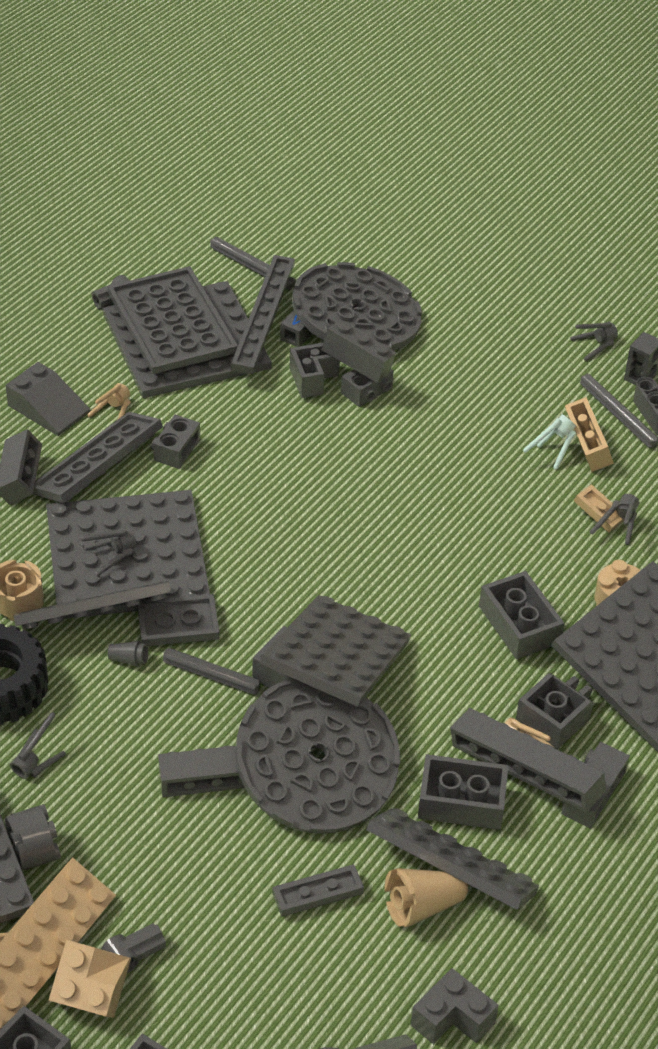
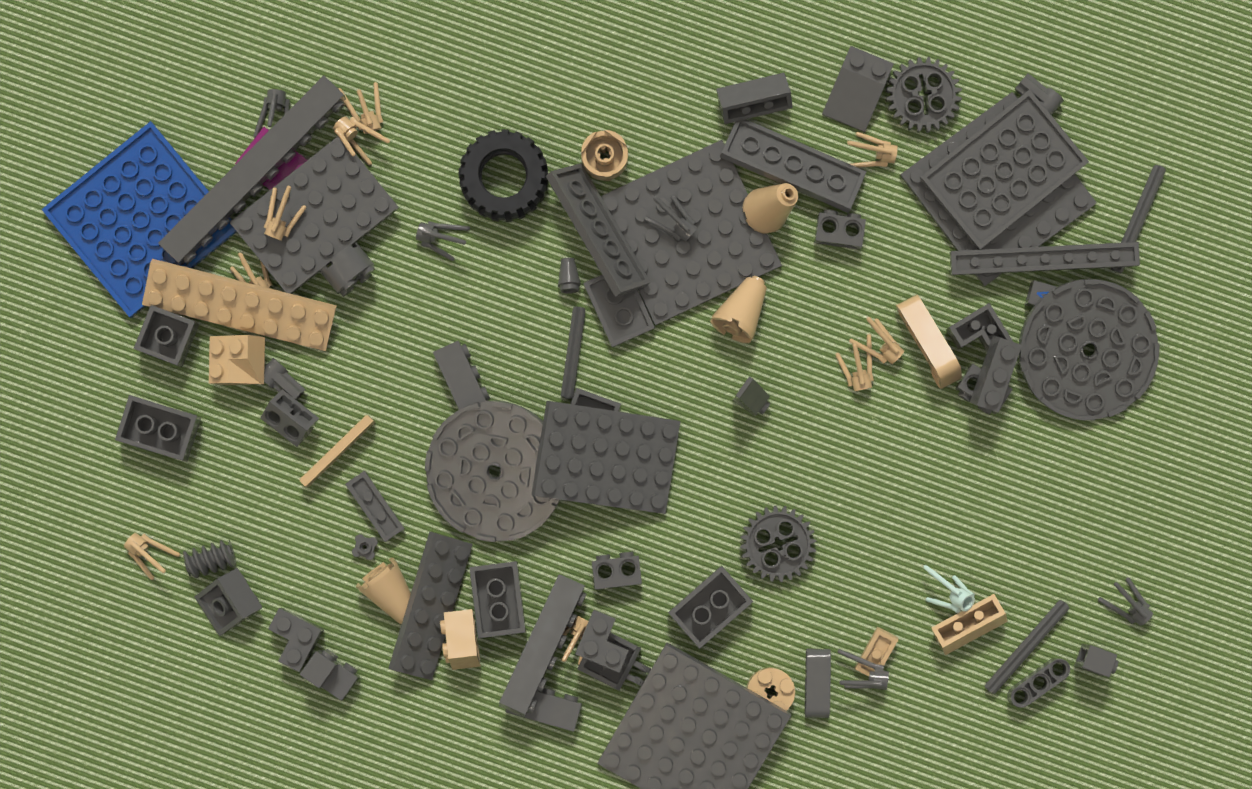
camera: 75 degrees right, 40 degrees up
(78, 359) = (902, 96): none -> dark grey gear
(130, 468) = (769, 207): none -> tan cone
(180, 938) = (289, 418): none -> dark grey brick
(227, 523) = (741, 310): none -> tan cone
(240, 911) = (335, 452): none -> tan tile
(307, 433) = (890, 349): none -> tan plant
(310, 399) = (930, 341): none -> tan beam
(313, 532) = (752, 397): none -> dark grey slope
(326, 458) = (861, 378): none -> tan plant
(362, 921) = (369, 542): none -> dark grey plate
(452, 556) = (770, 522): none -> dark grey gear
(461, 685) = (617, 577): none -> dark grey brick
(502, 826) = (461, 639): none -> tan brick
(508, 979) = (328, 673): none -> dark grey brick
(538, 695) = (595, 644): none -> dark grey brick
(602, 551) = (817, 683): none -> dark grey beam

